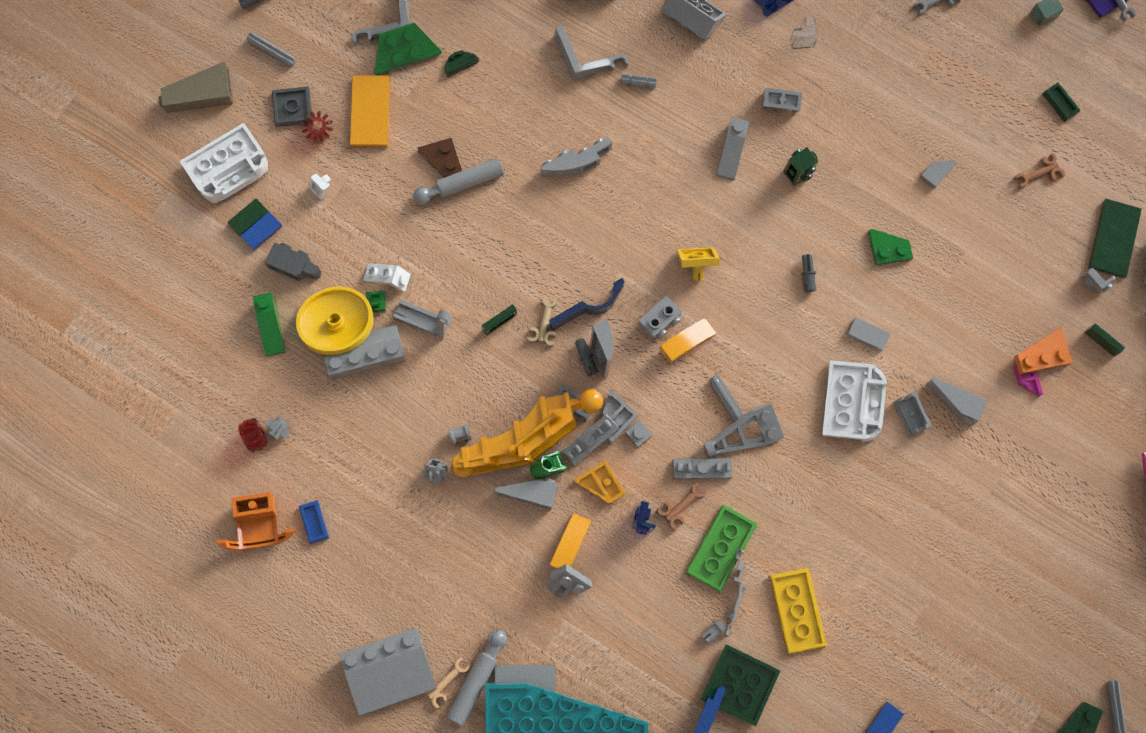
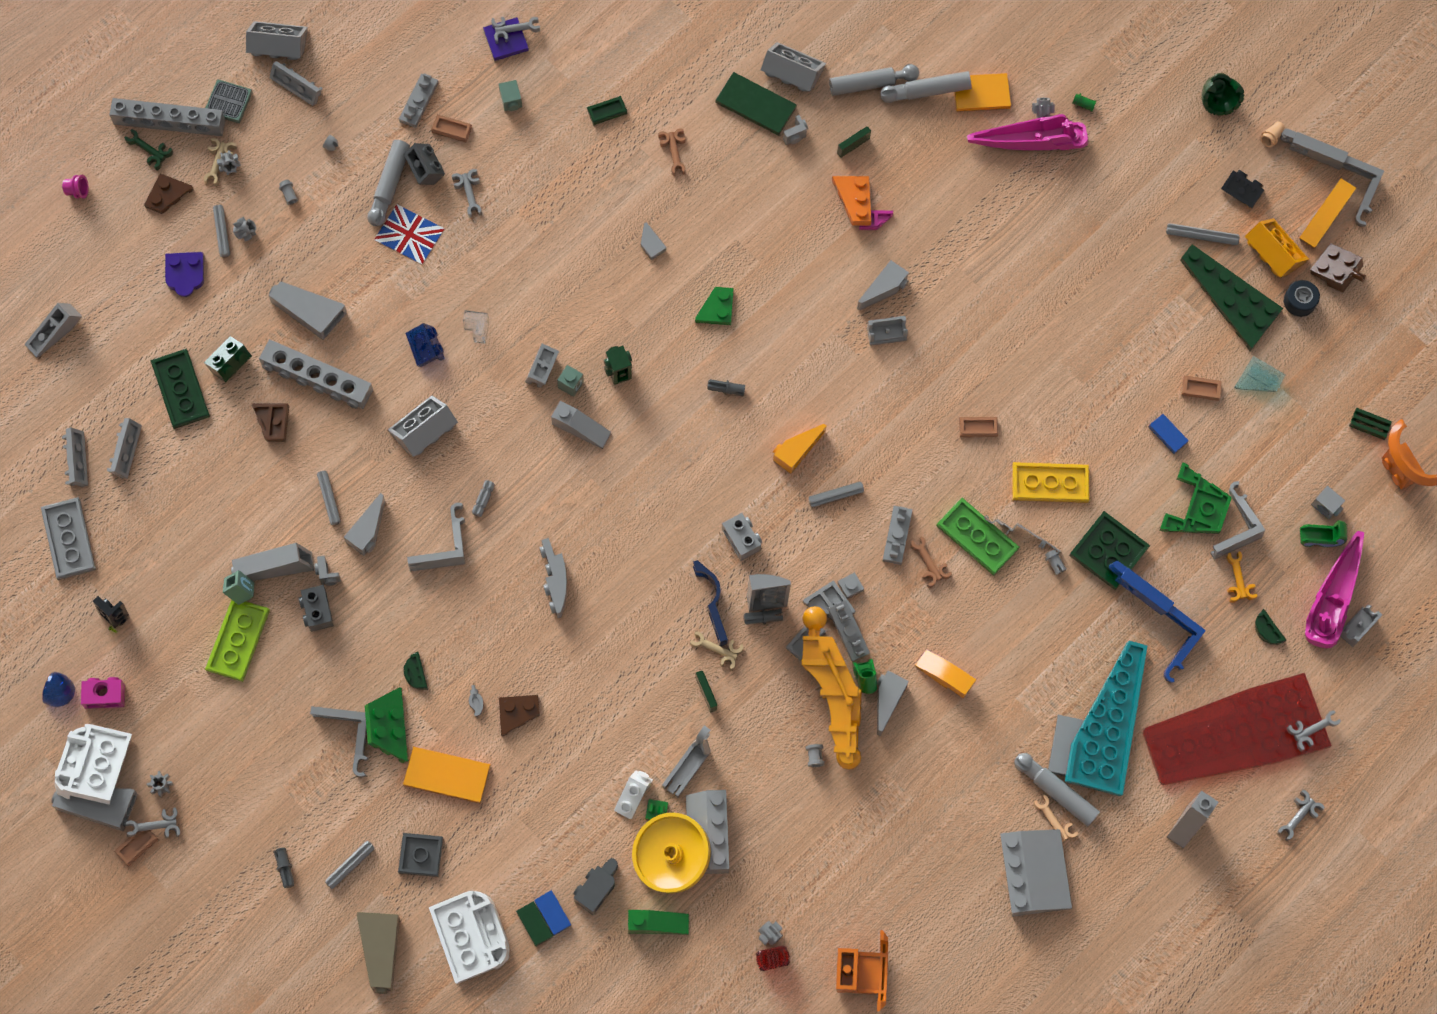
camera: 75 degrees left, 5 degrees down
(314, 522) = (871, 917): blue tile -> none
(319, 186) = (519, 842): white tile -> none
(322, 129) = (449, 835): clear red gear -> none
(435, 471) = (847, 786): light grey gear -> none
(444, 120) = (475, 701): none -> light grey piece
(460, 181) = (549, 699): light grey piece -> none
(568, 579) = (982, 681): light grey hinge -> none
(602, 482) = (892, 630): light orange wing -> none
(641, 516) = (937, 601): clear blue bracket -> none
(687, 340) = (769, 517): light orange slope -> none
(698, 259) = (689, 485): yellow tile -> none
(762, 351) = (796, 448): none -> light orange slope
(768, 426) = (872, 463): light grey plate -> none
(774, 129) = (570, 380): none -> sand green brick
(837, 526) = (978, 426): none -> nougat tile
(854, 401) = (863, 379): white plate -> none
(868, 334) = (799, 349): light grey tile -> none

